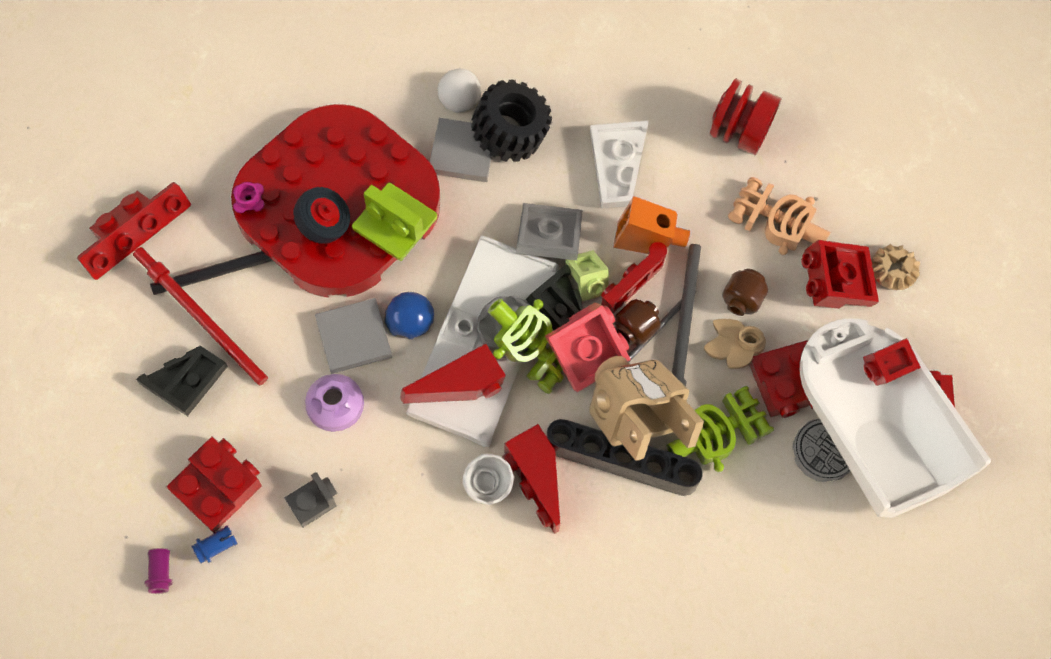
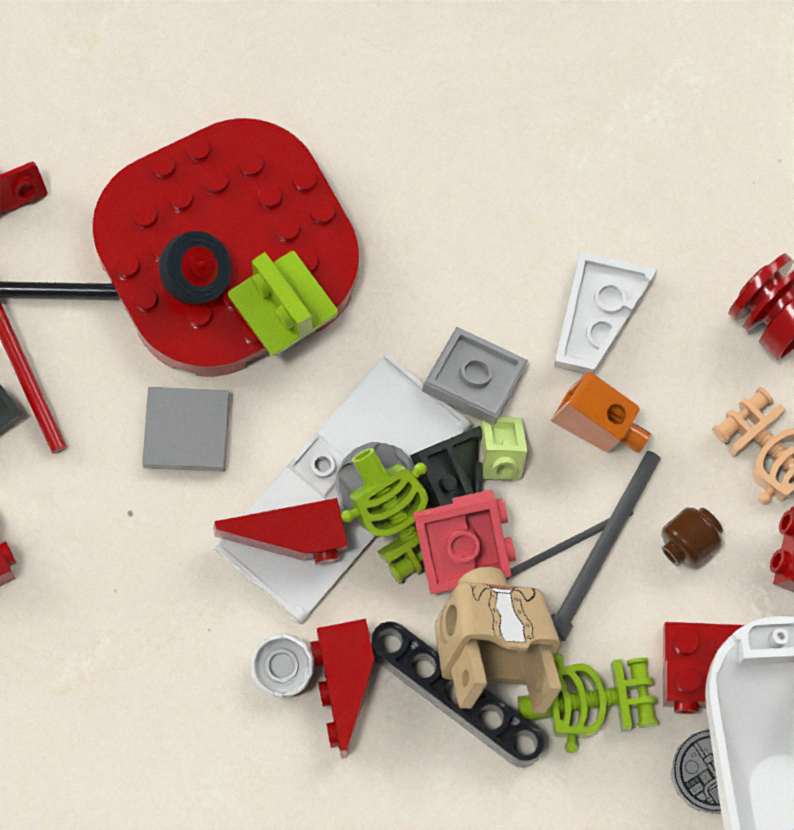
camera: 20 degrees right, 5 degrees up
(245, 190) = (116, 202): dark pink plate -> none
(312, 500) = (67, 617): dark grey bracket -> none
(337, 416) = (137, 524): lavender piece -> none
(409, 315) = (263, 426): blue hair -> none
(457, 152) = (407, 230): light grey tile -> none
(459, 90) = (430, 149): white hair -> none
(520, 104) = (498, 194): black tyre -> none
(635, 278) = (558, 473): red plate -> none
(637, 321) = (539, 530): reddish brown head -> none
(735, 343) = (649, 597): tan plate -> none

